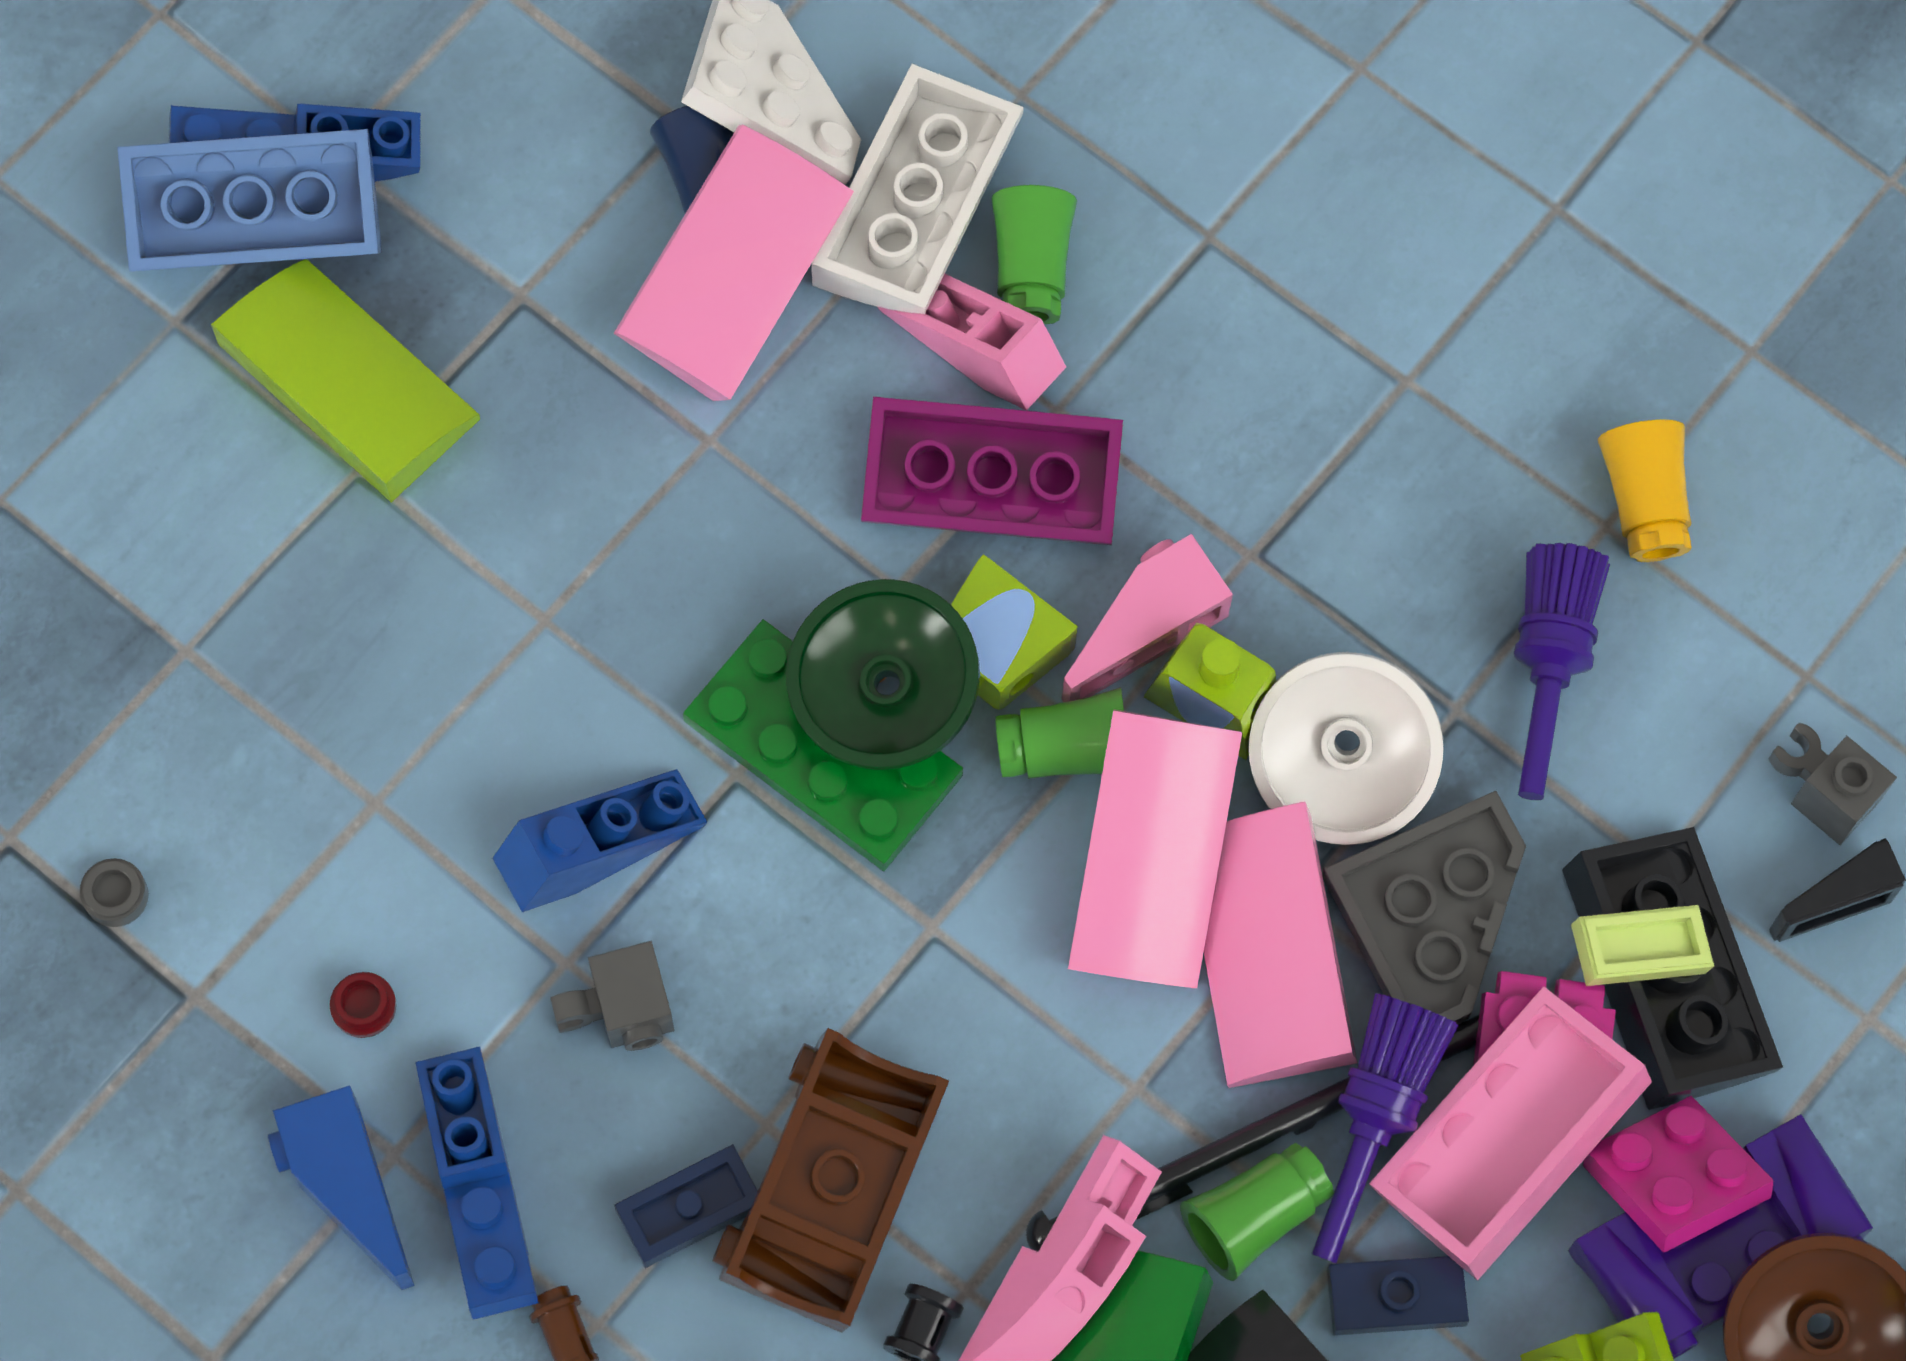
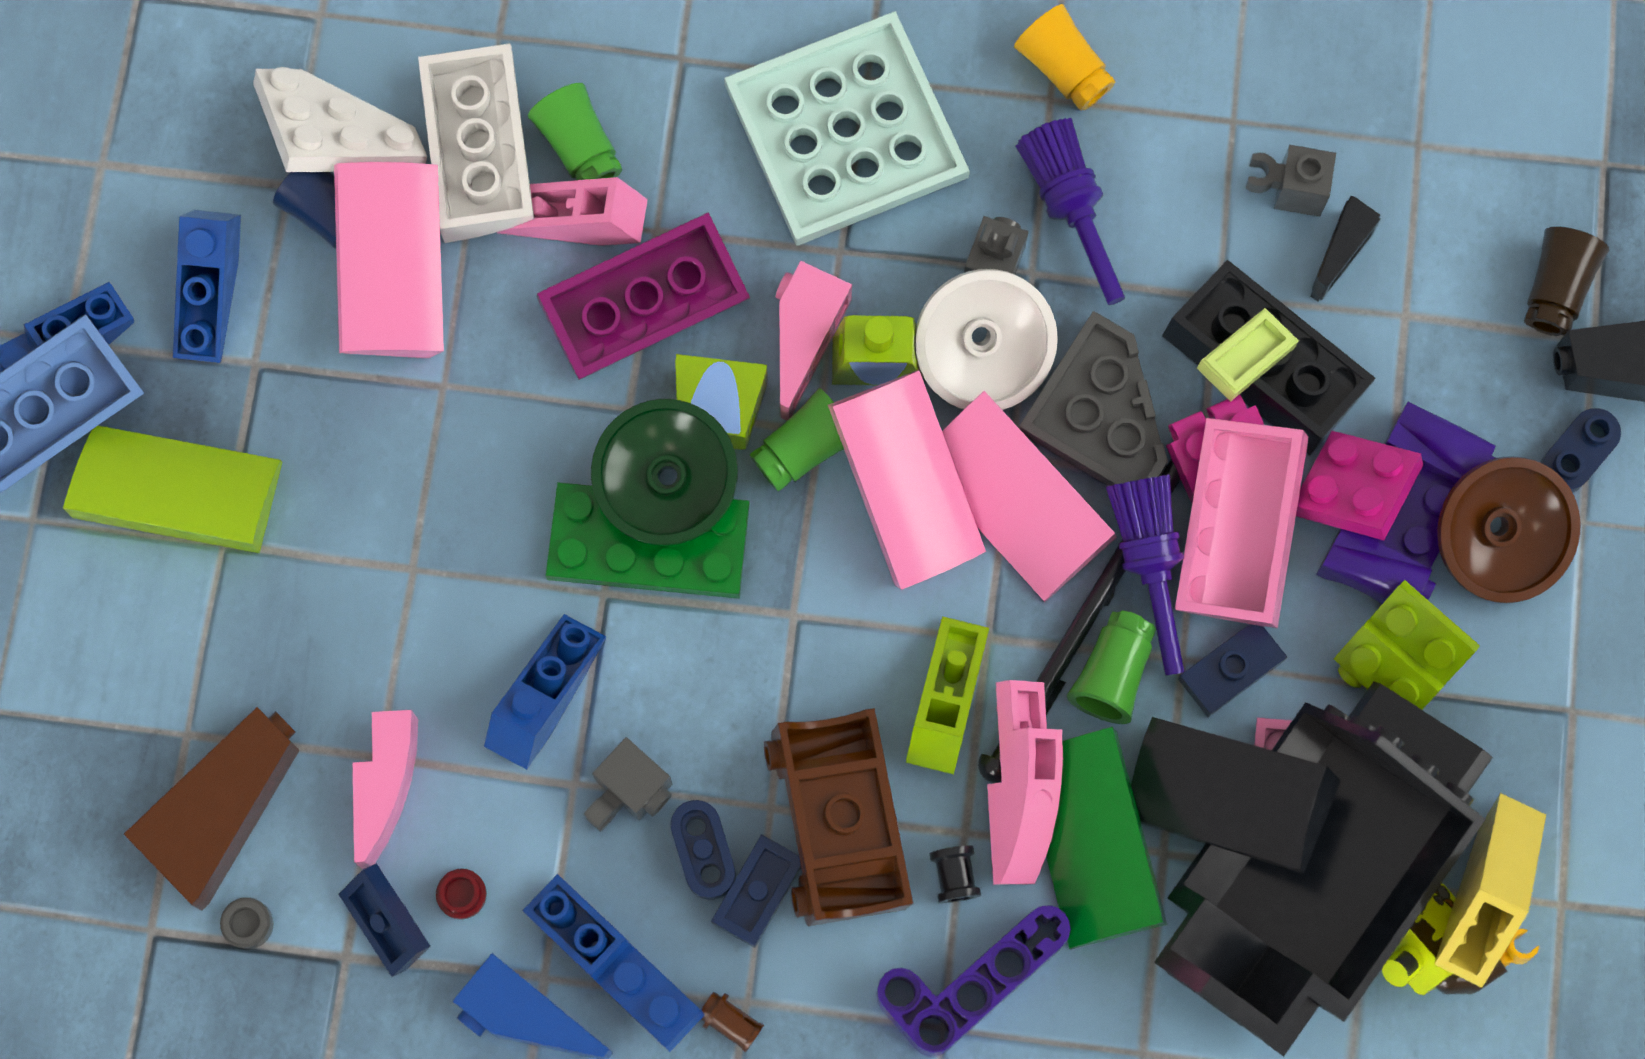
camera: 30 degrees left, 5 degrees up
(162, 743) = (213, 809): none -> reddish brown slope
(260, 979) = (384, 920): none -> dark blue plate
(356, 830) = (384, 783): none -> bright pink slope
(522, 174) = (205, 283): none -> blue slope
(656, 1123) = (703, 850): none -> dark blue plate
(1043, 1121) = (947, 695): none -> lime slope
(1301, 500) = (853, 196): none -> light aqua piece
(1431, 652) = (997, 245): none -> dark grey brick

